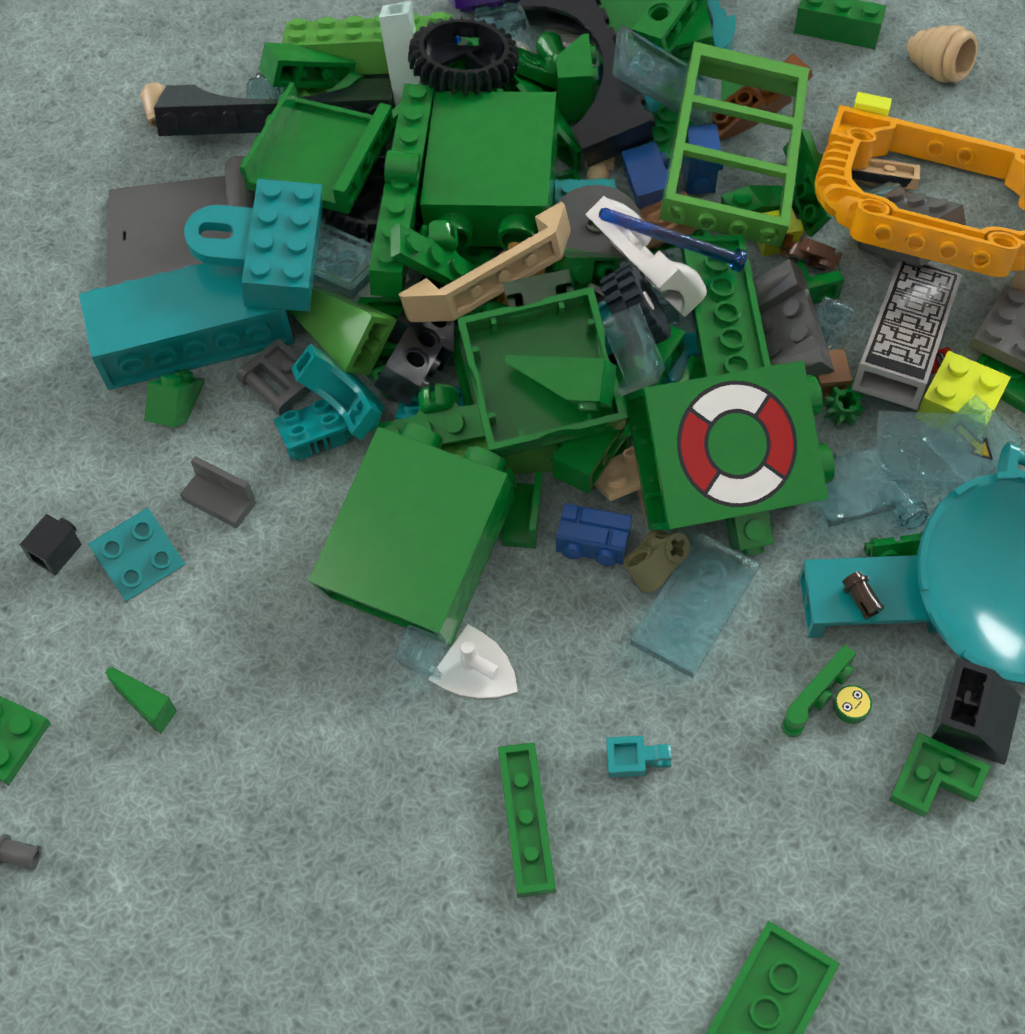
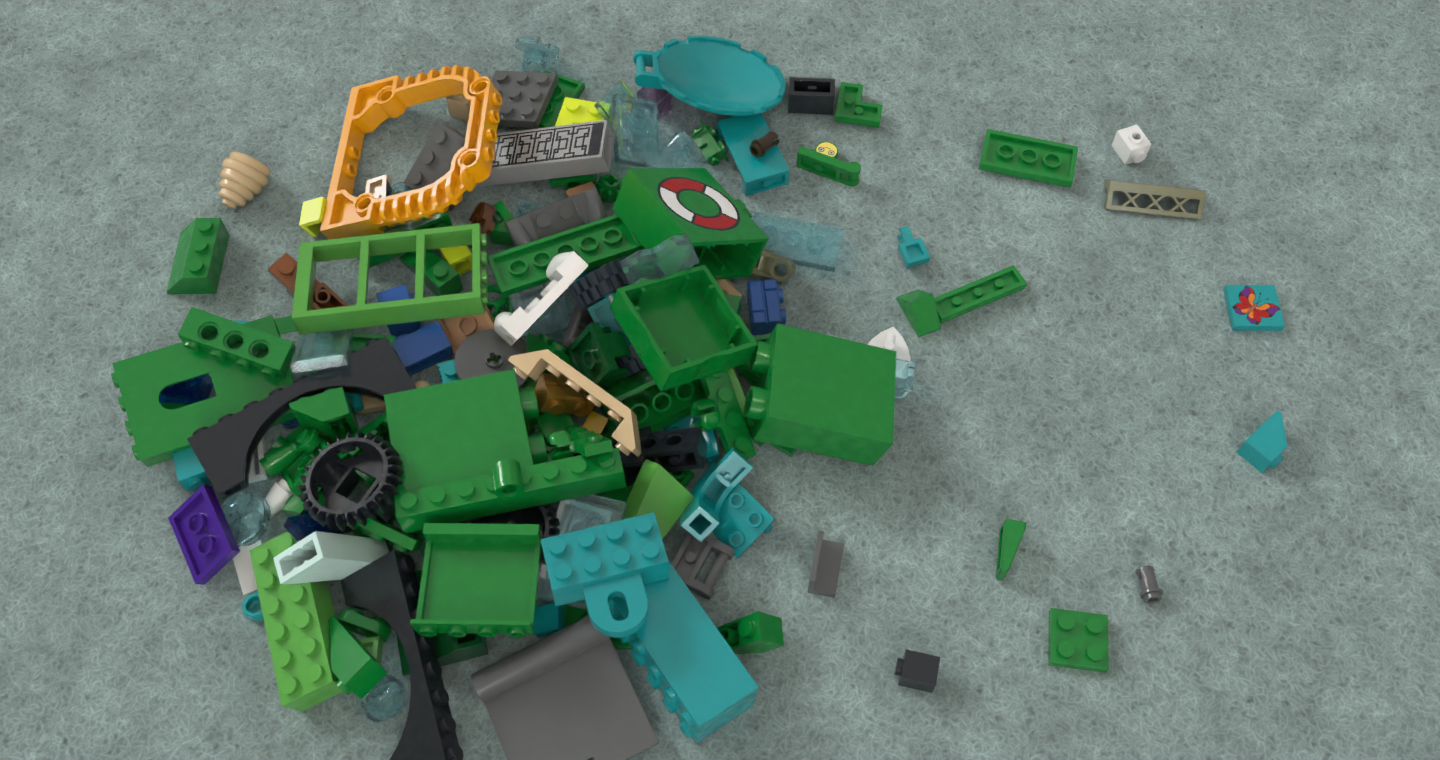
camera: 110 degrees left, 0 degrees up
(136, 554) = (898, 603): teal hinge -> none
(527, 724) = (920, 311): none -> green slope
(578, 380) = (692, 292): green slope -> none
(736, 259) = (520, 249): clear blue bar -> none

